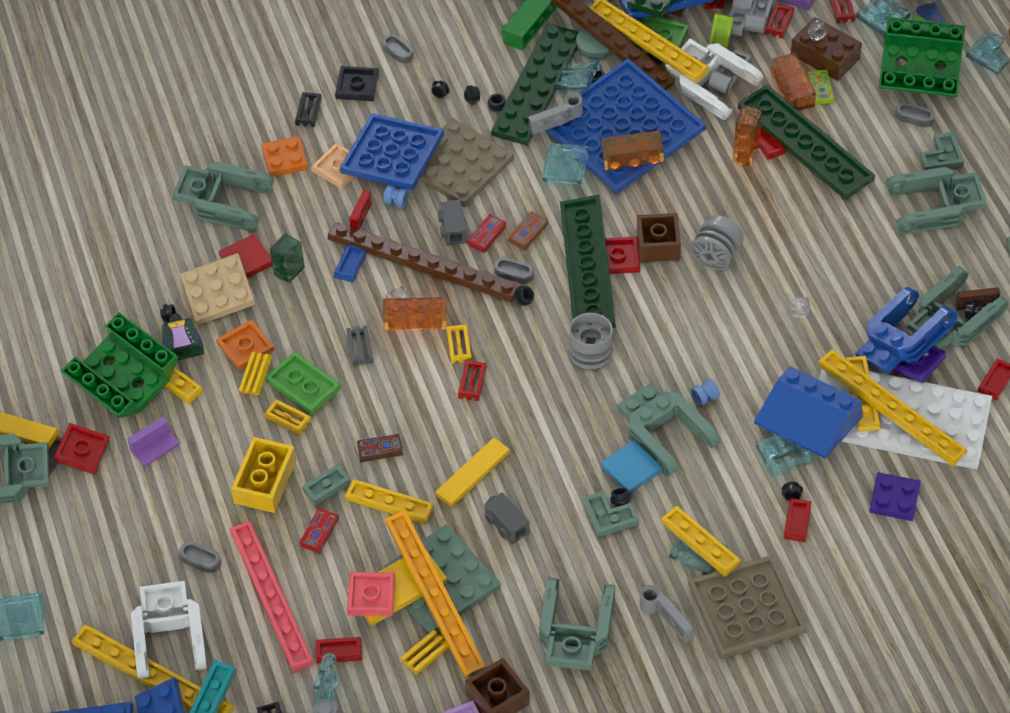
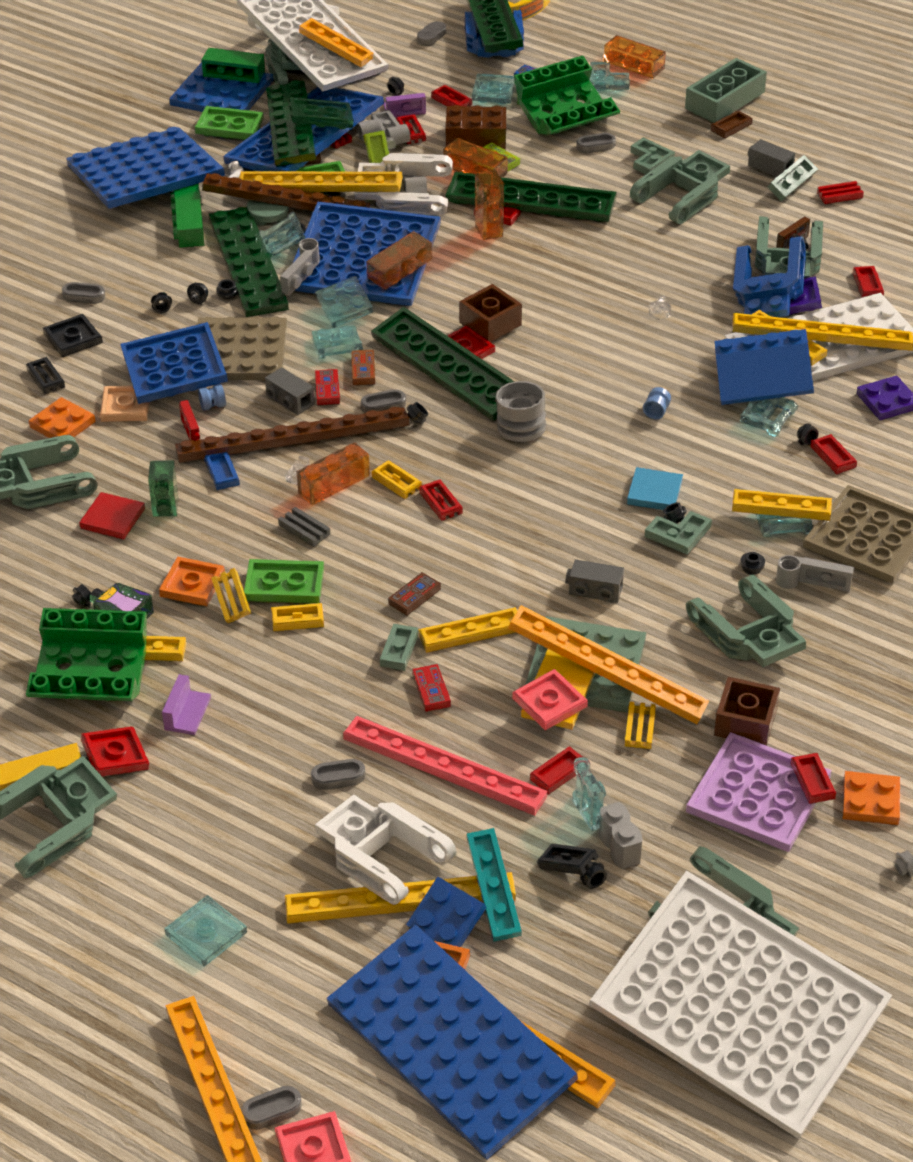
camera: 40 degrees left, 10 degrees down
(217, 289) = (113, 550): tan plate -> none
(263, 474) = (334, 668): yellow brick -> none
(472, 472) = (521, 567): yellow tile -> none
(531, 192) = (336, 341): none -> clear light blue plate
(636, 579) = (752, 563): none -> black plate
(650, 410) = (628, 440): sand green plate -> none
(717, 242) = (547, 291): light grey wheel -> none
(817, 29) = (464, 108): clear tile -> none

